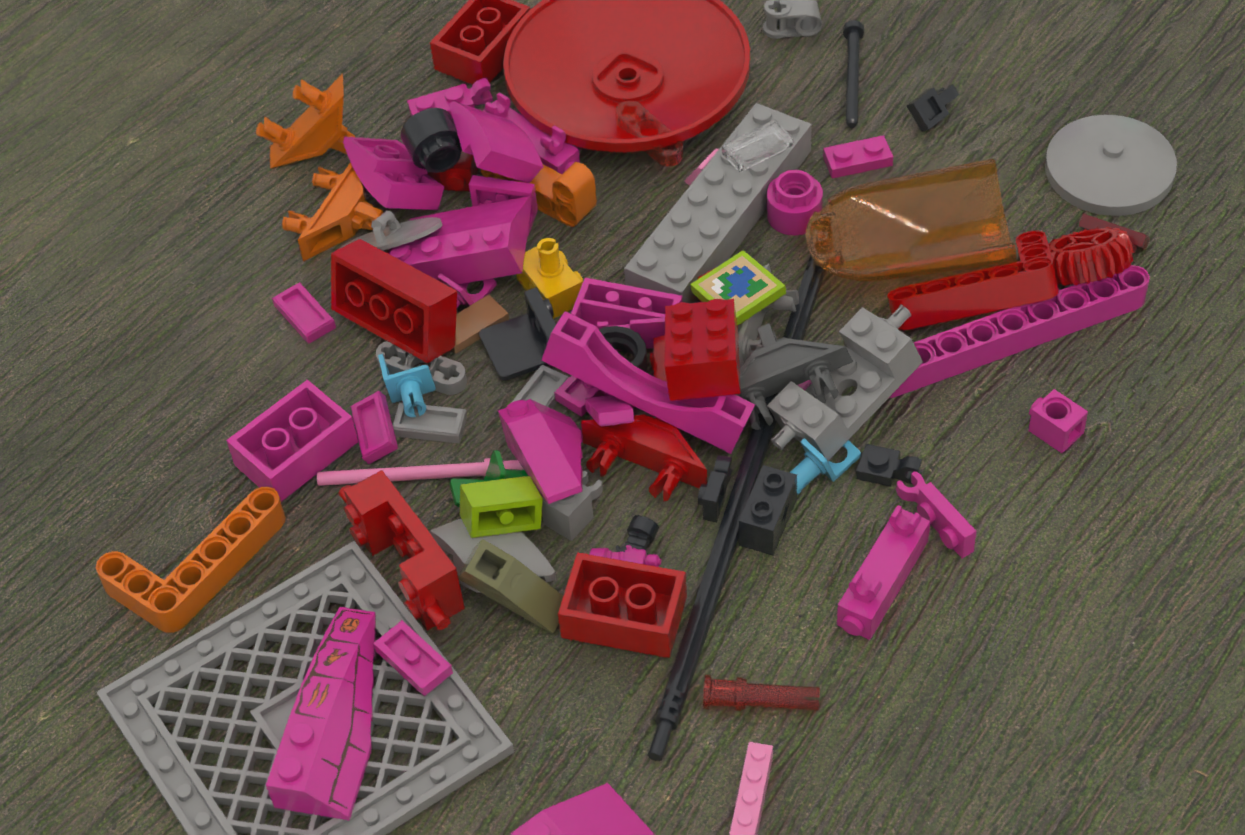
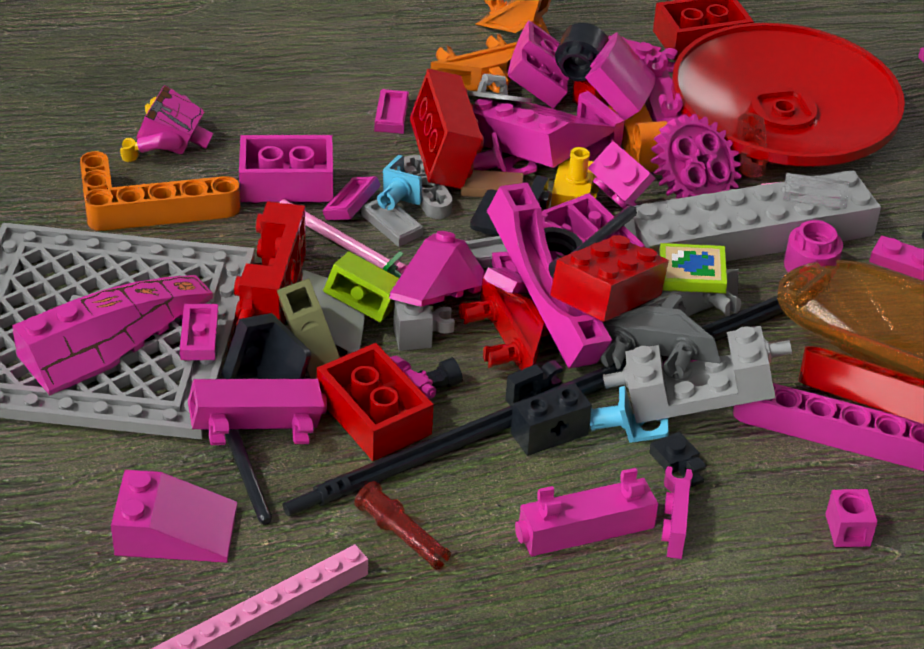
camera: 35 degrees right, 10 degrees down
(131, 476) = (168, 125): none -> dark pink torso
(502, 632) = (265, 351): none -> black bracket
(506, 714) = (249, 477): none -> black bar
(535, 687) = (256, 405): none -> dark pink brick
(596, 241) = (620, 175): none -> dark pink bracket
(629, 183) = (694, 158): none -> dark pink gear
(654, 367) = (603, 233): none -> black bar

